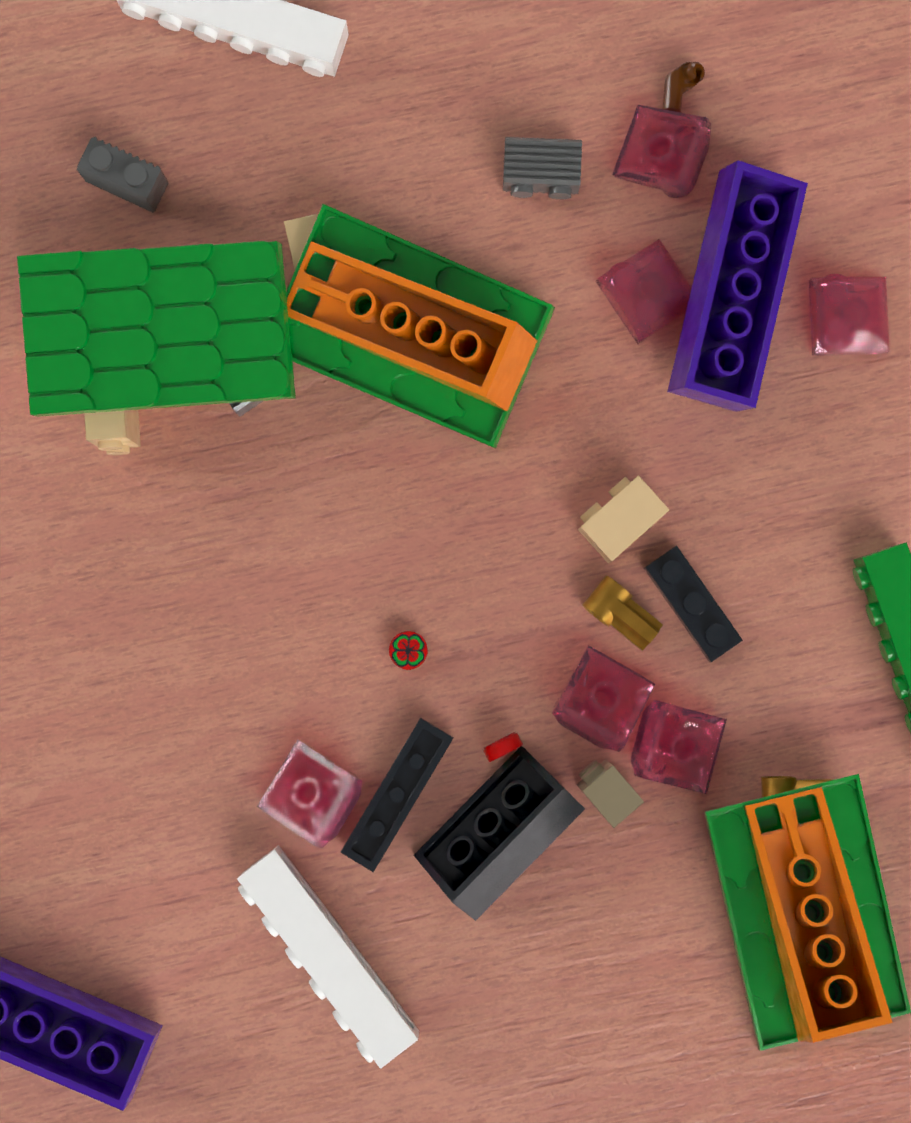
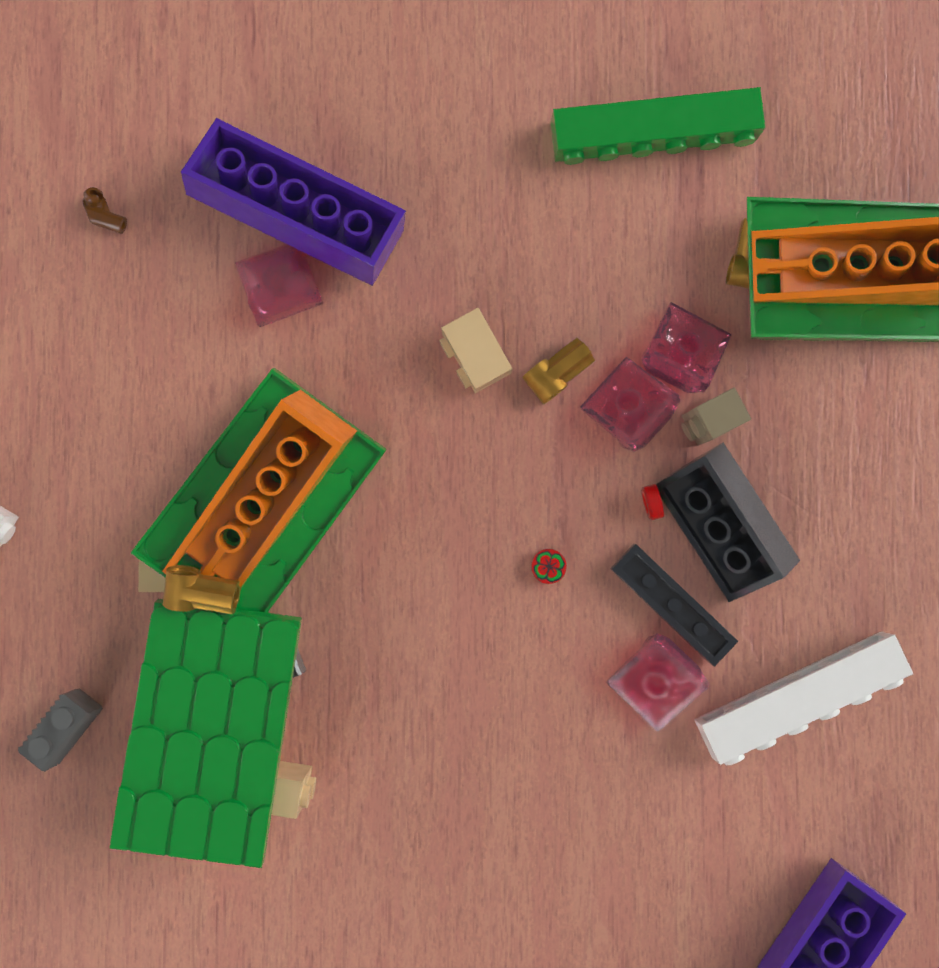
camera: 80 degrees left, 0 degrees up
(298, 275) = (189, 590): none -> pearl gold piece
(542, 167) = (145, 349): dark grey brick -> none
(664, 150) = (156, 238): clear pink slope -> none
(693, 604) = (563, 308): black plate -> none
(848, 315) = (341, 115): clear pink slope -> none

